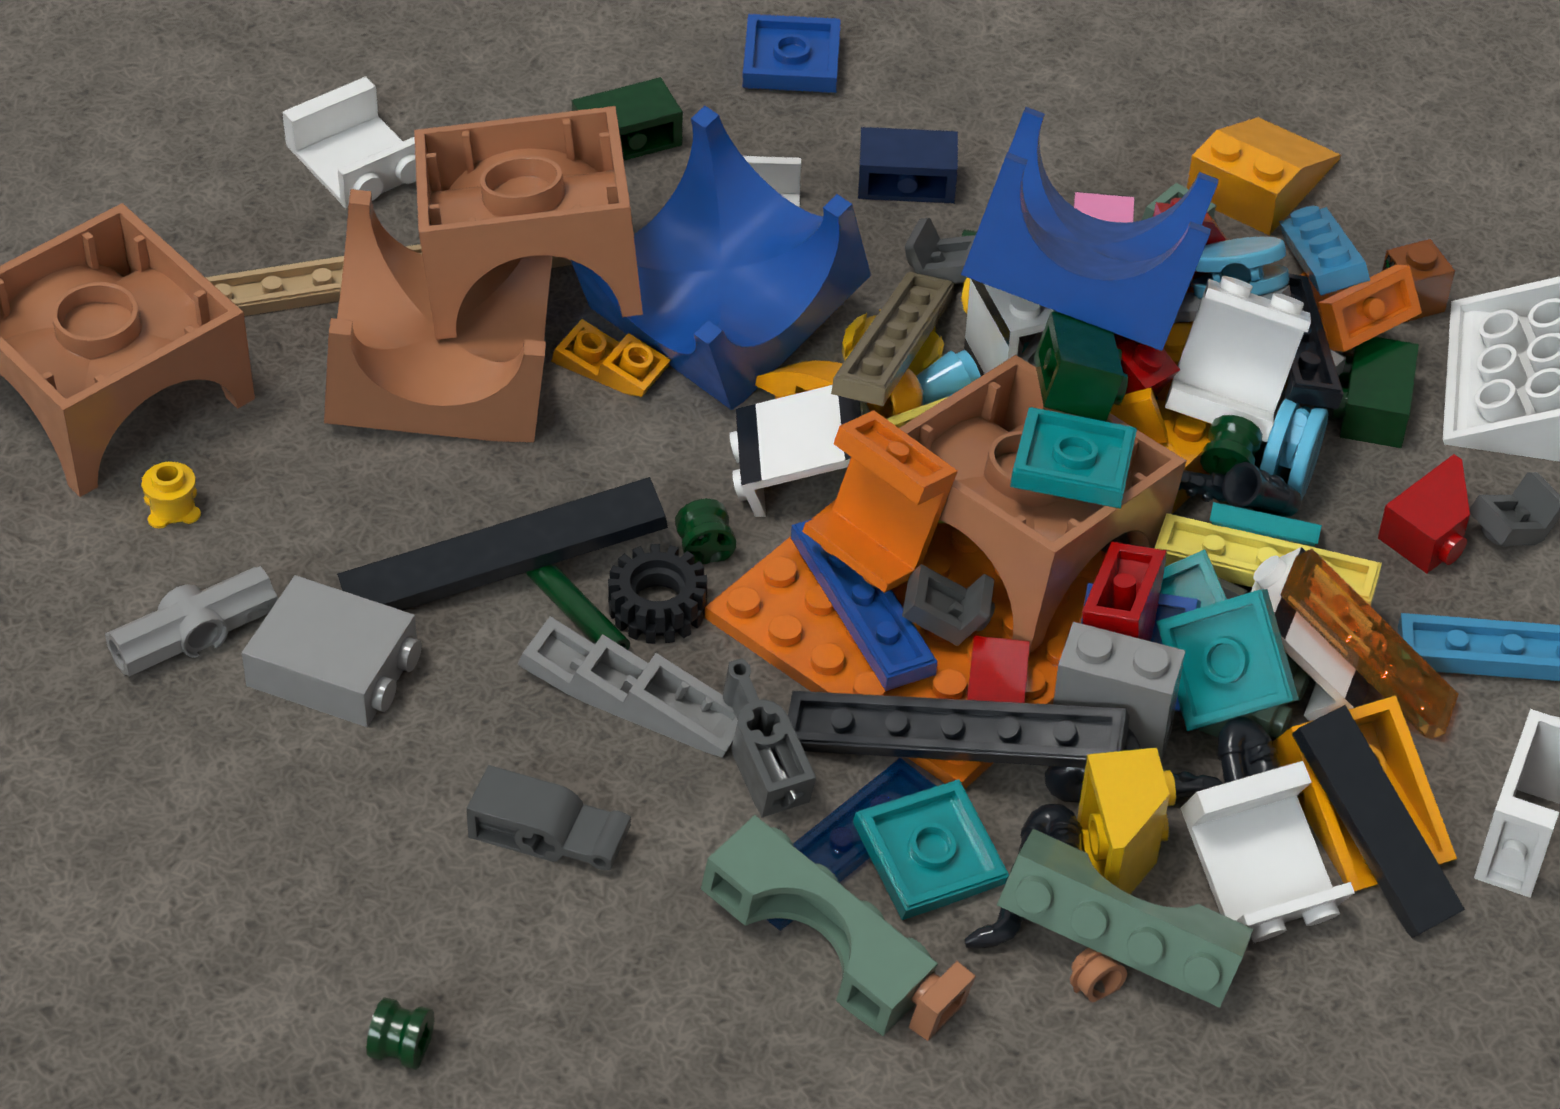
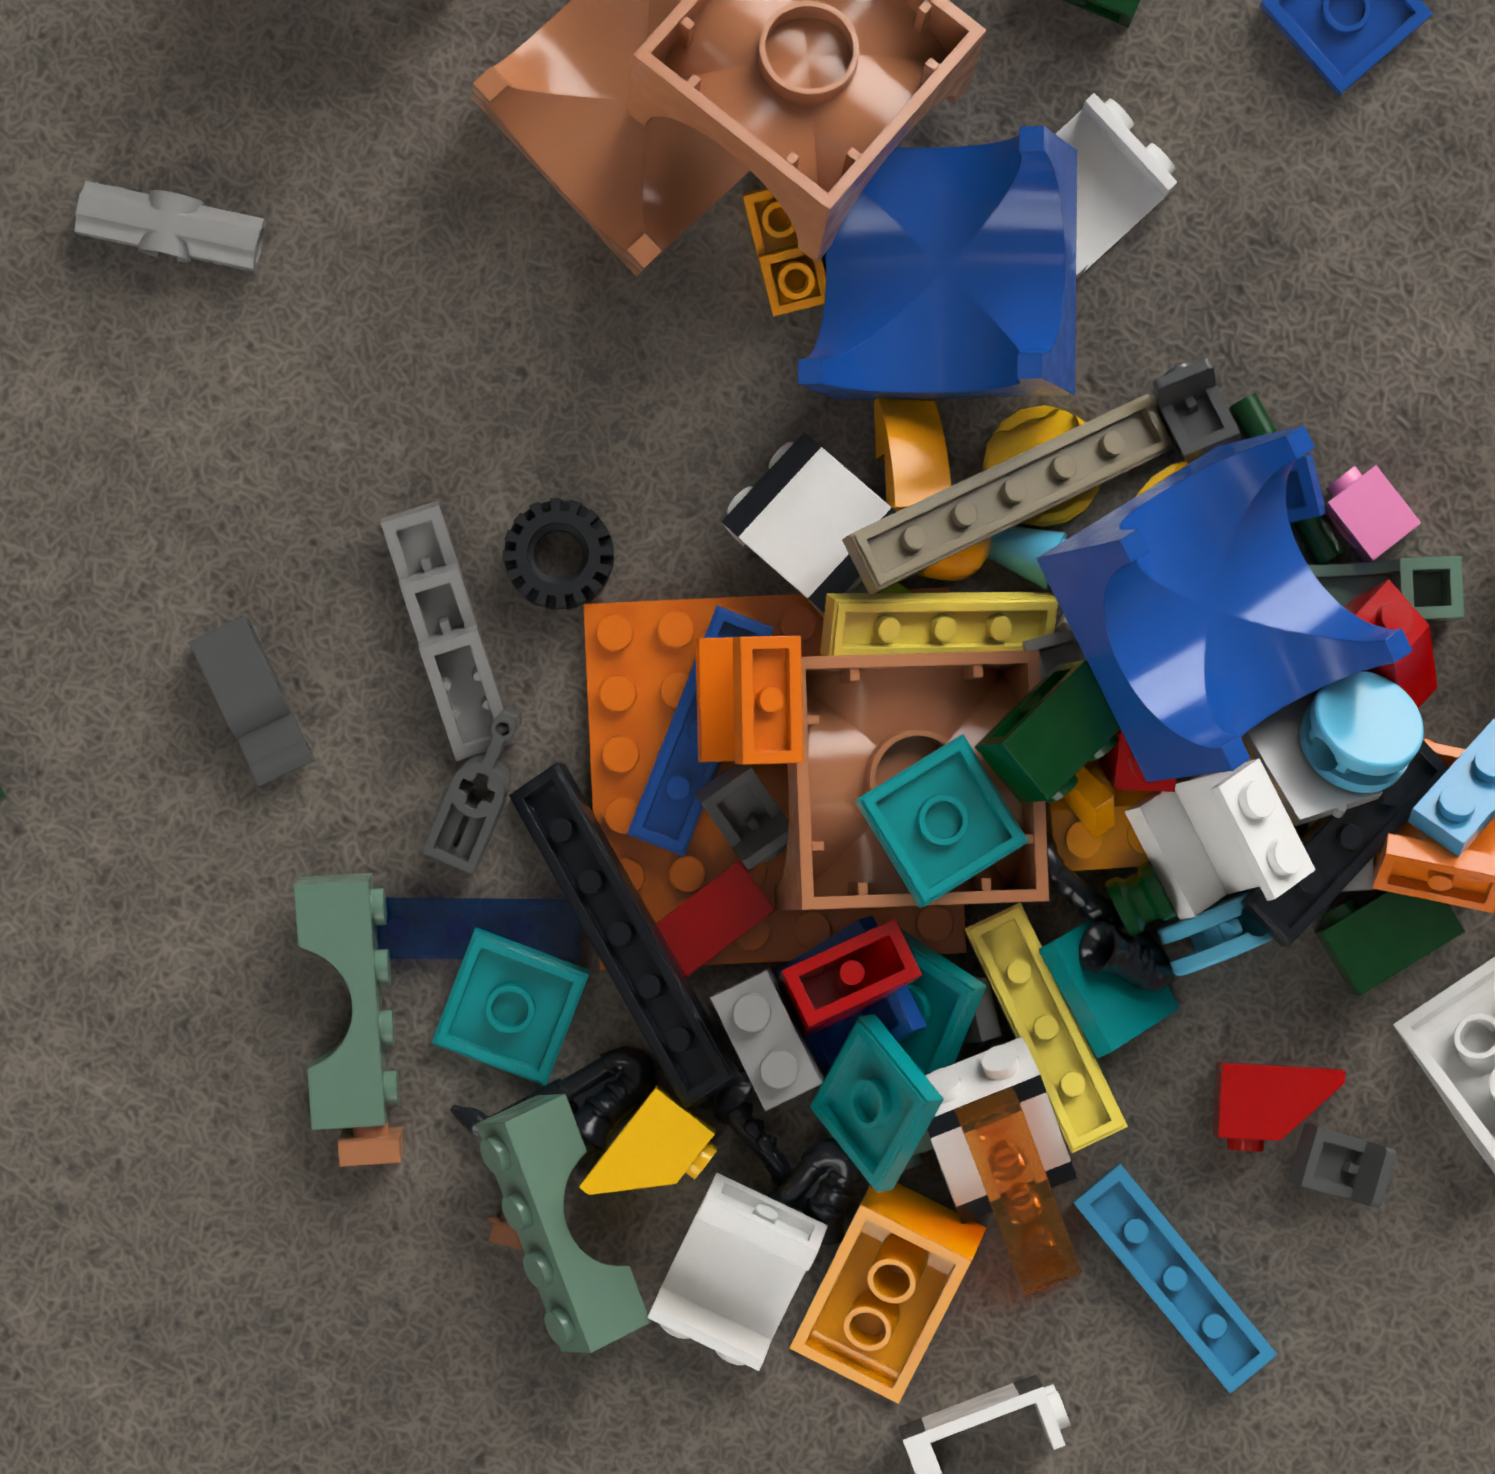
camera: 50 degrees right, 40 degrees up
(170, 494) = (277, 79): yellow brick -> none
(331, 651) = (245, 369): light grey brick -> none
(509, 547) = (475, 394): black tile -> none
(576, 605) = (491, 486): dark green piece -> none
(705, 531) = (659, 528): dark green wheel -> none
(908, 165) = (1286, 266): dark blue brick -> none
(1378, 821) = (848, 1331): black tile -> none

